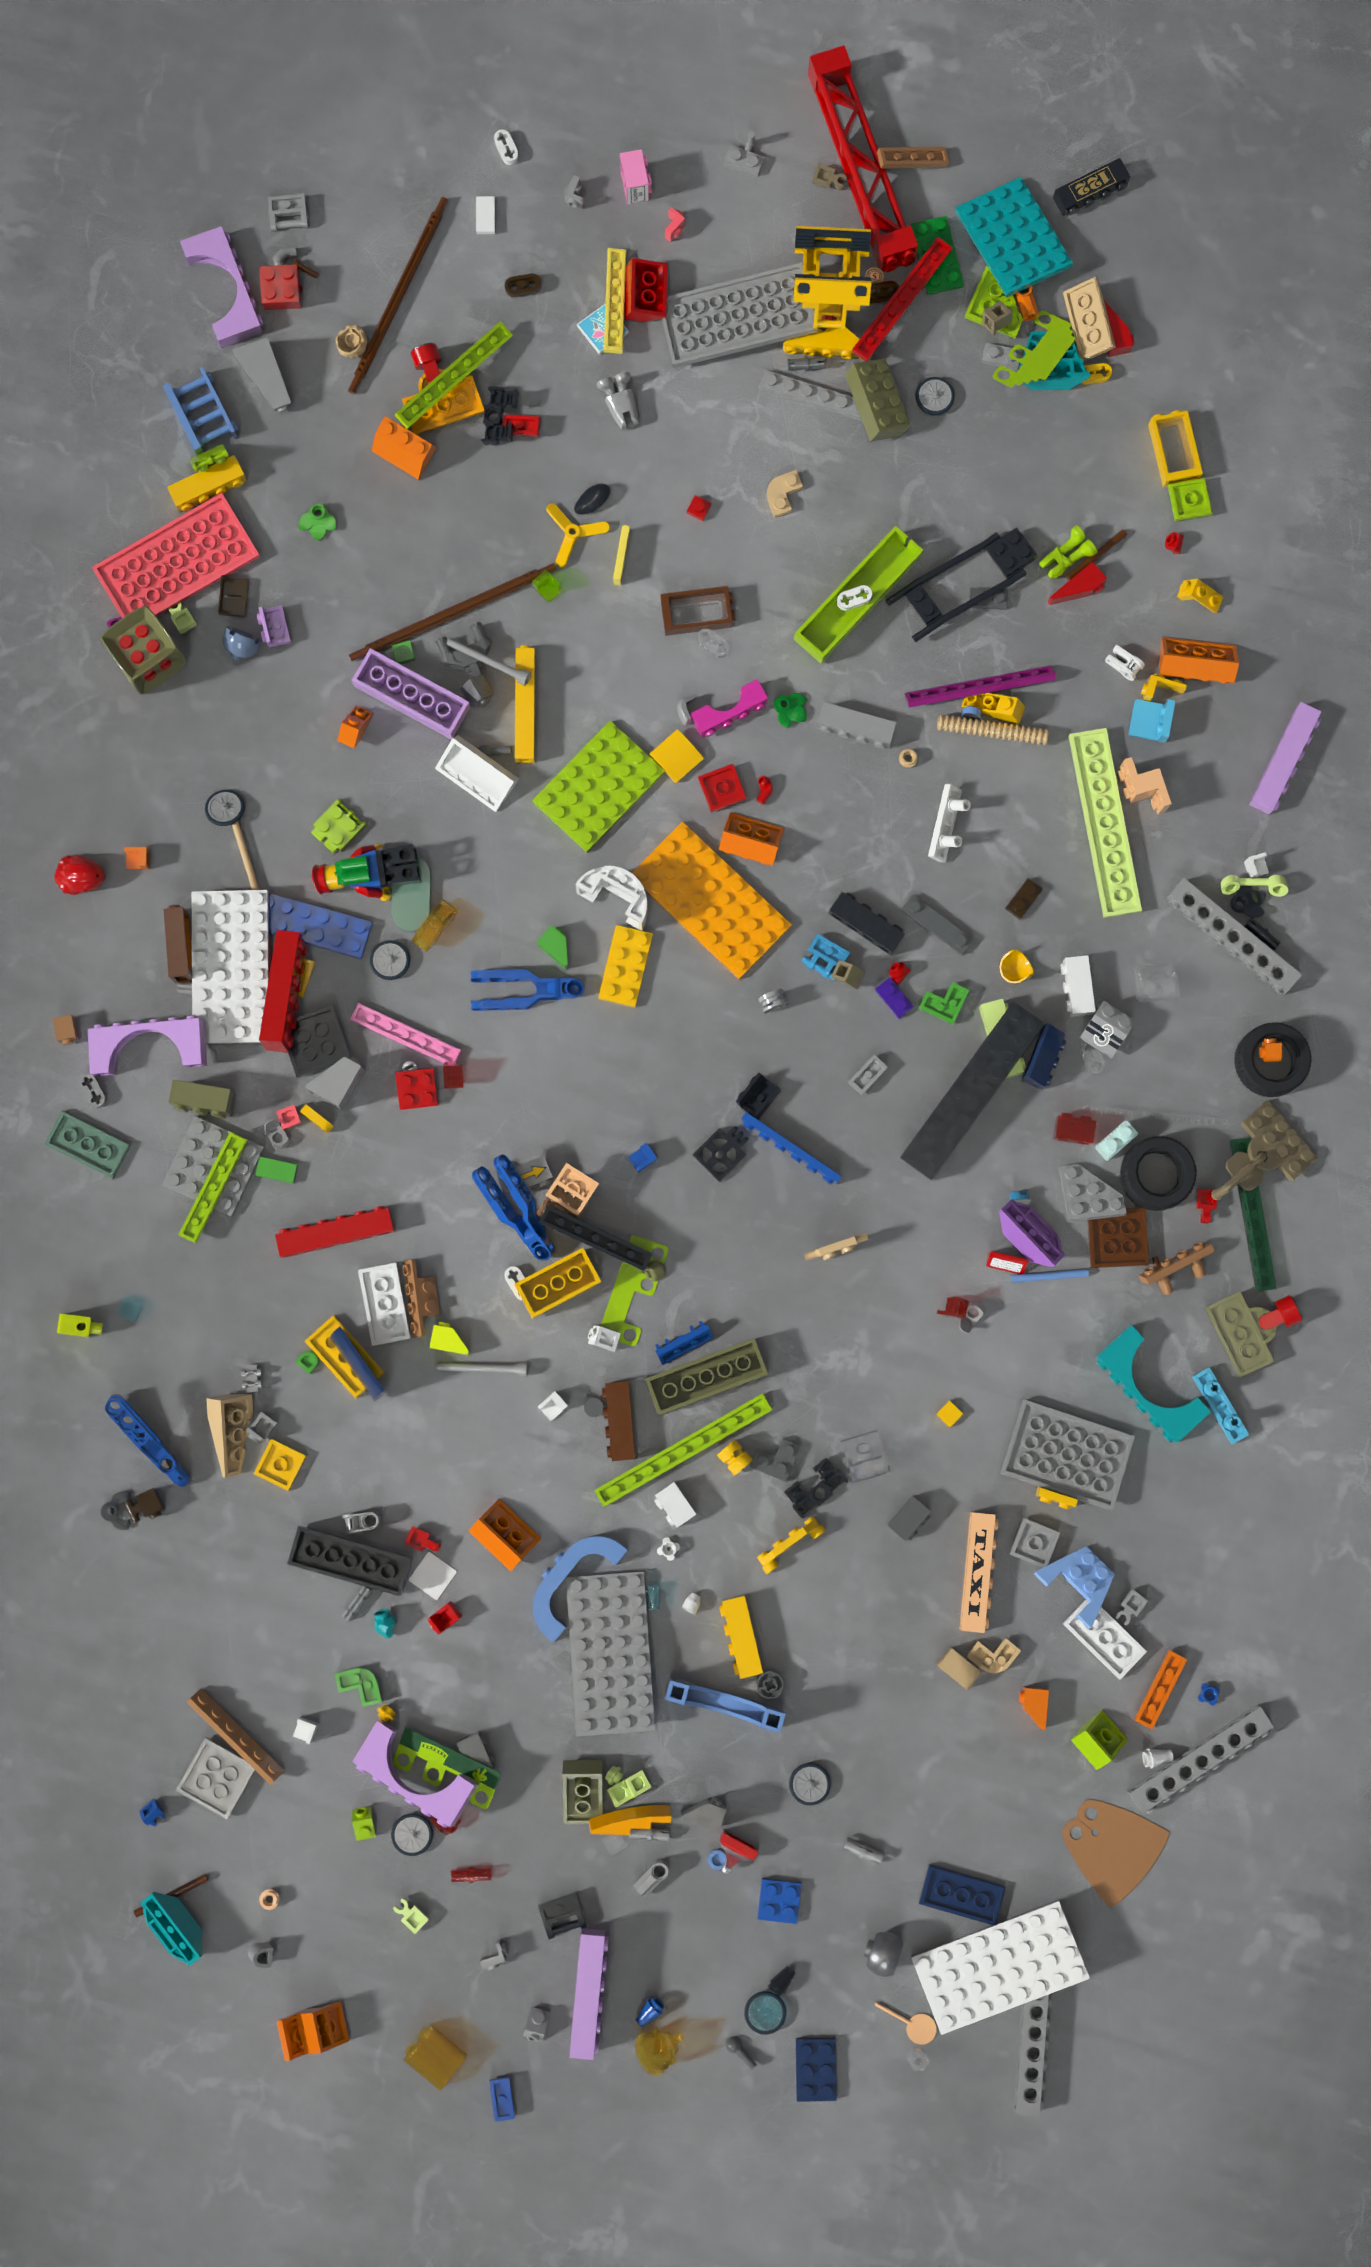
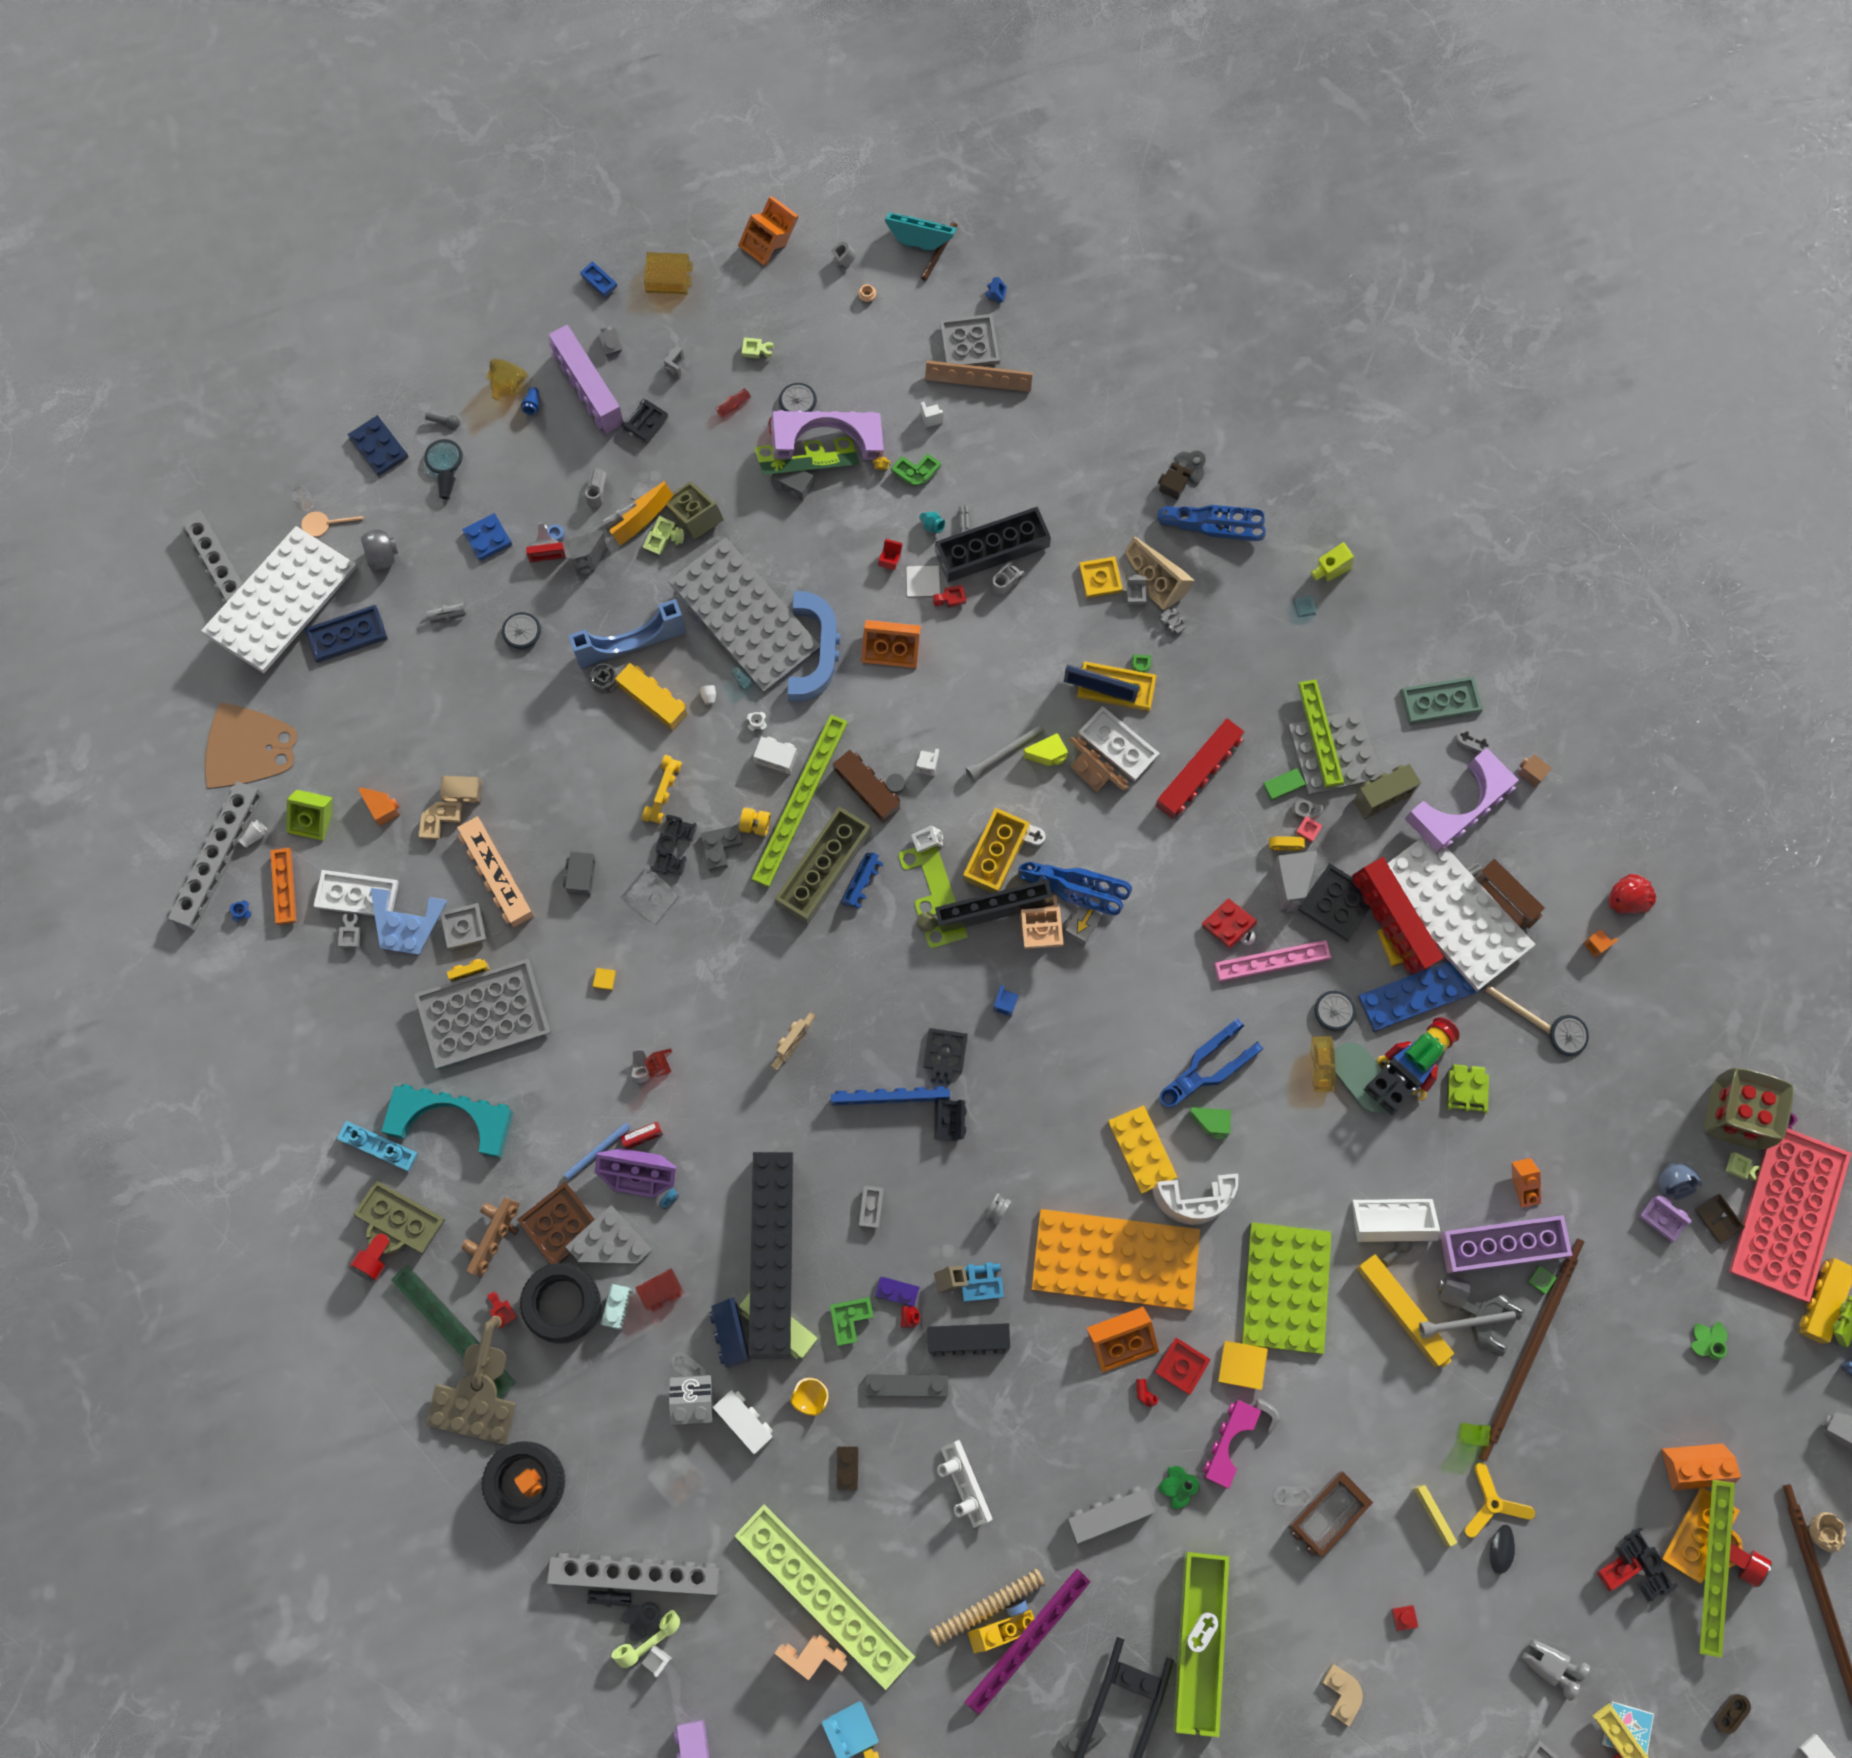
camera: 145 degrees right, 10 degrees down
(363, 1823) = (839, 382): lime bracket -> none
(453, 1076) = (1208, 952): clear red panel -> none
(908, 752) = (1035, 1521): tan plate -> none

